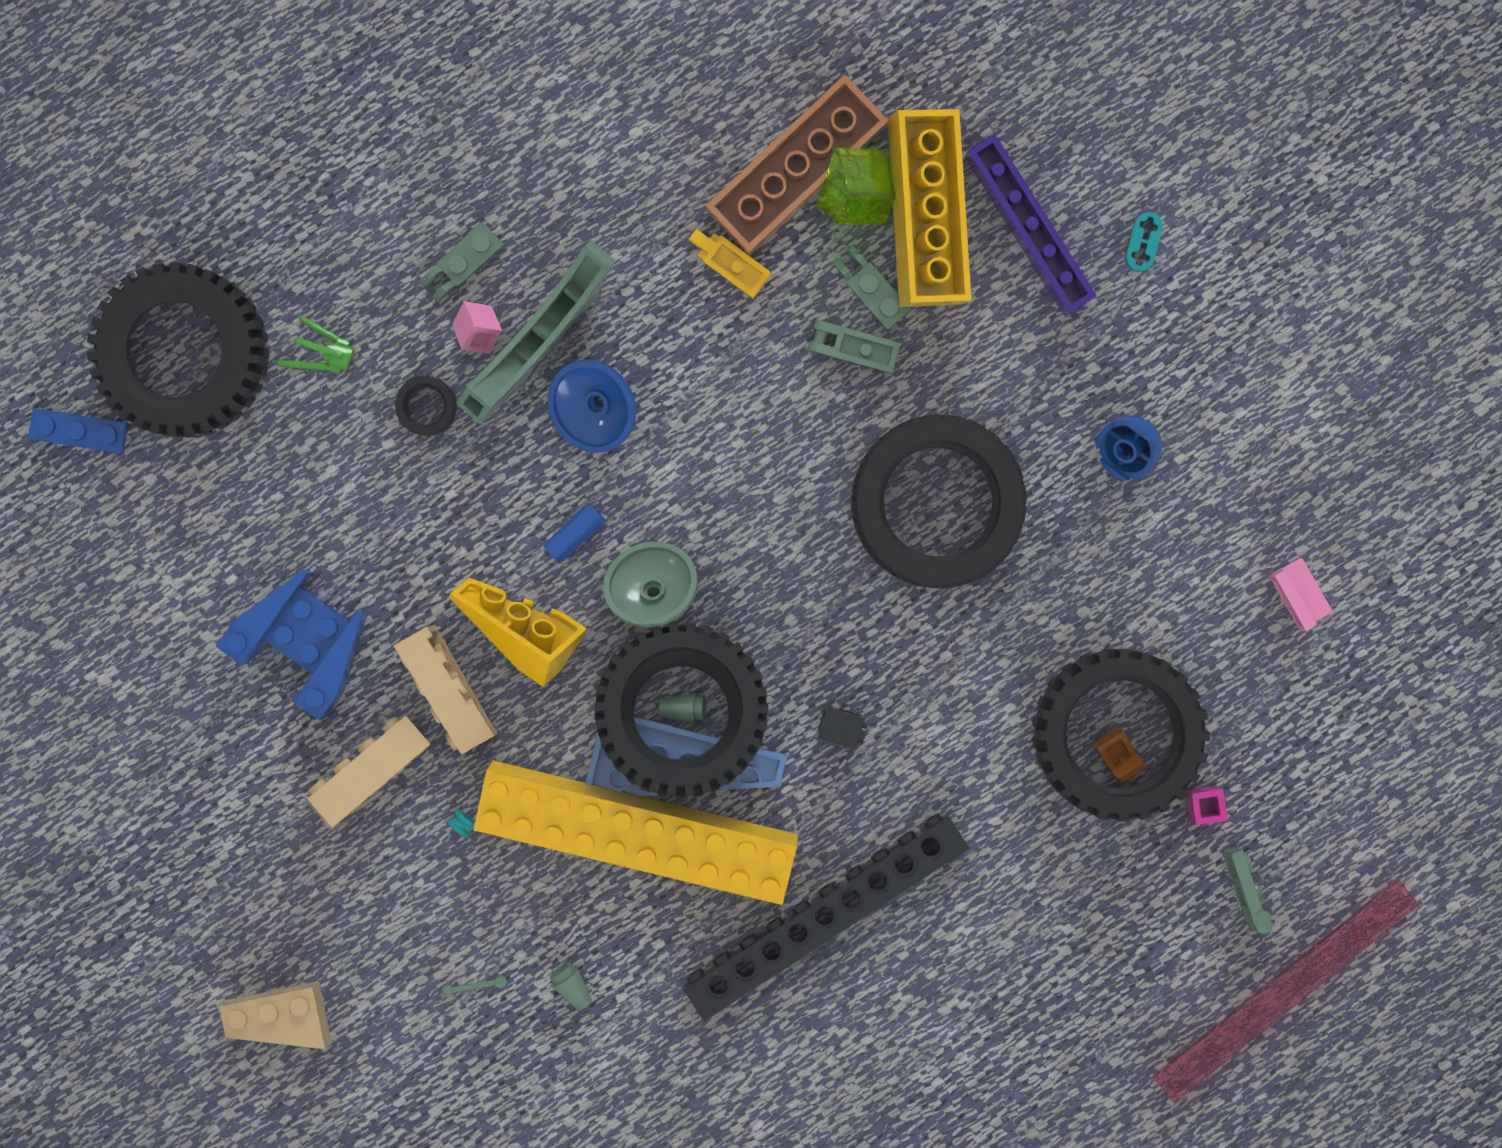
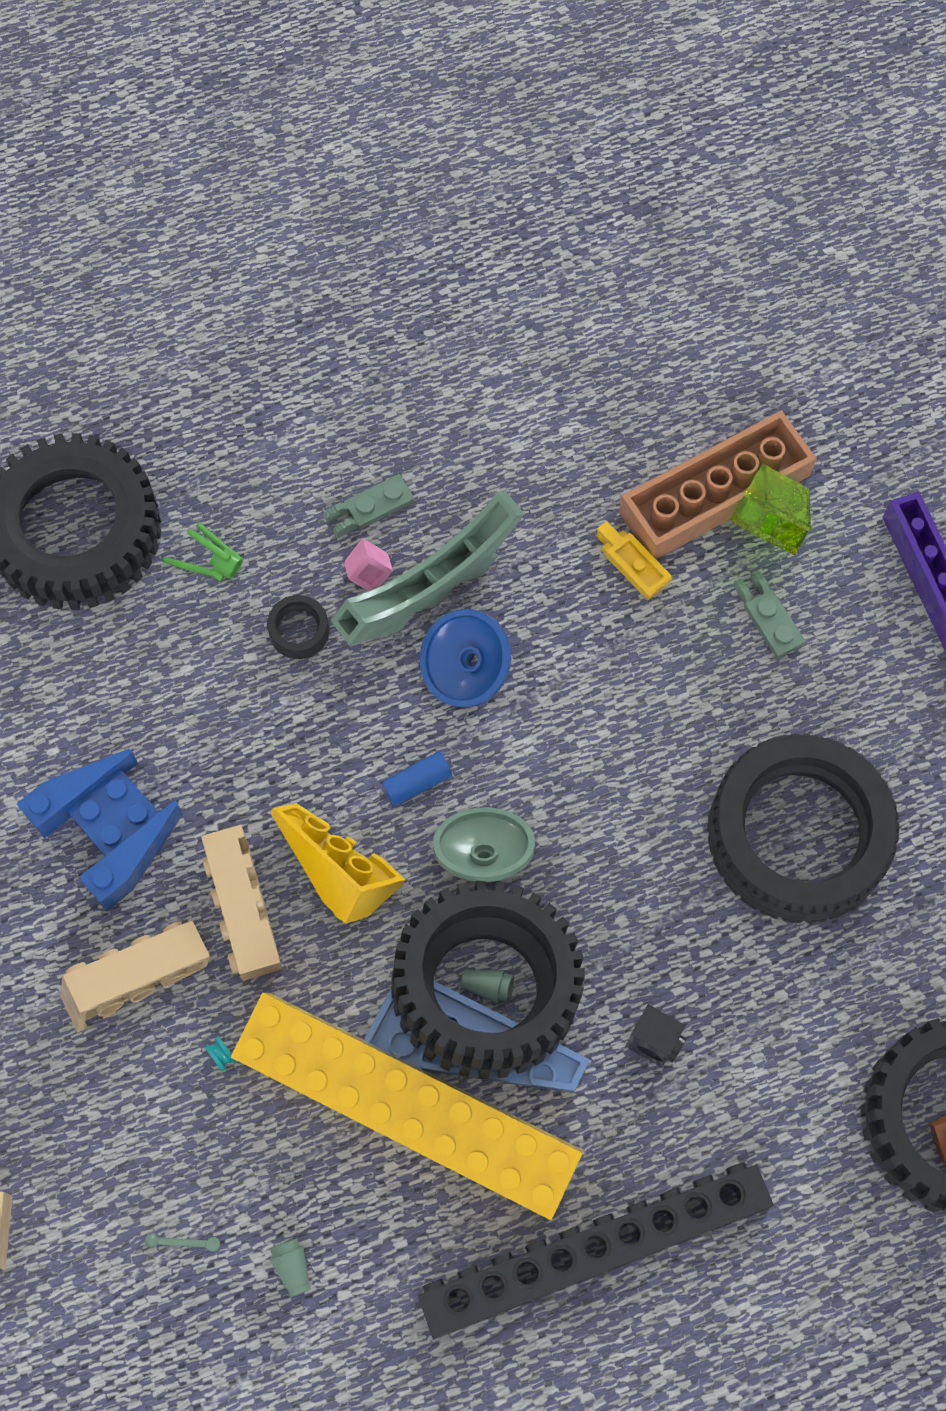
camera: 10 degrees right, 20 degrees down
(855, 347) = (741, 664): sand green plate -> none
(929, 208) = (842, 550): yellow brick -> none

